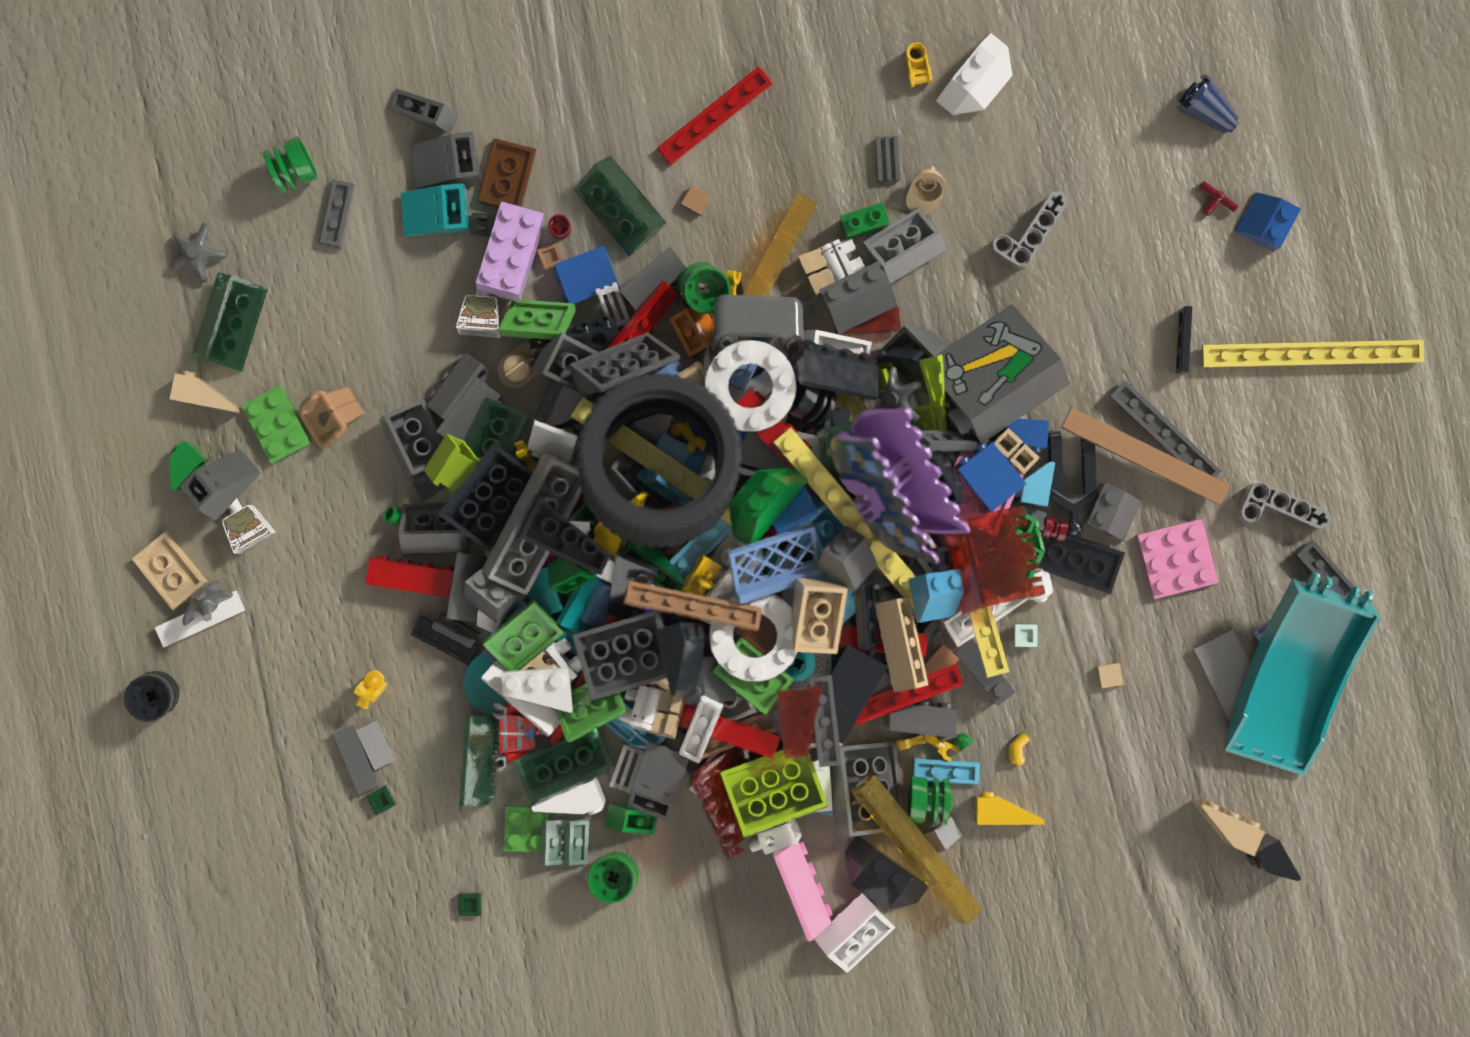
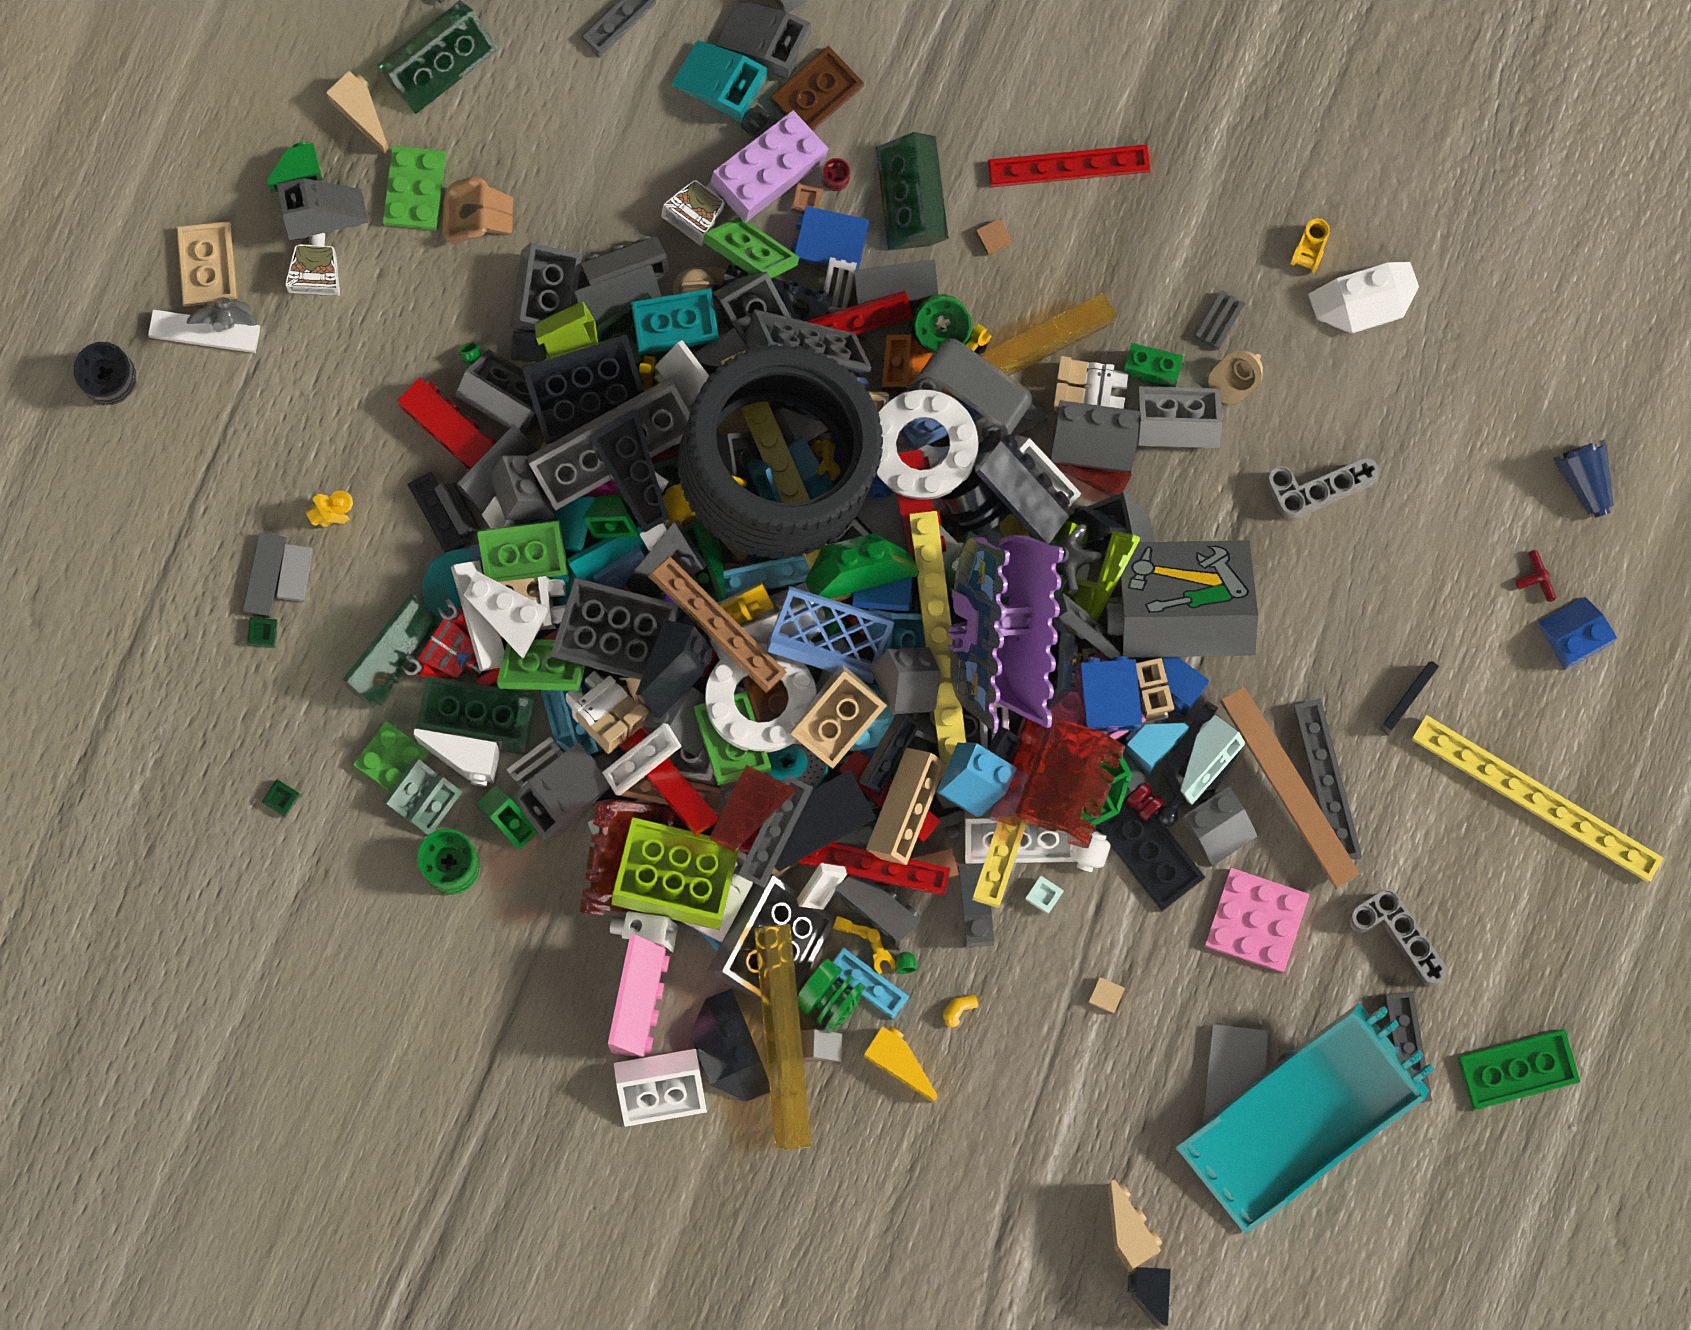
camera: 30 degrees right, 10 degrees down
(519, 407) = (673, 318): none -> teal tile
(877, 732) = (821, 886): none -> white tile
(1079, 469) = (1212, 751): none -> light aqua slope
(1414, 546) = (1518, 1069): none -> green tile

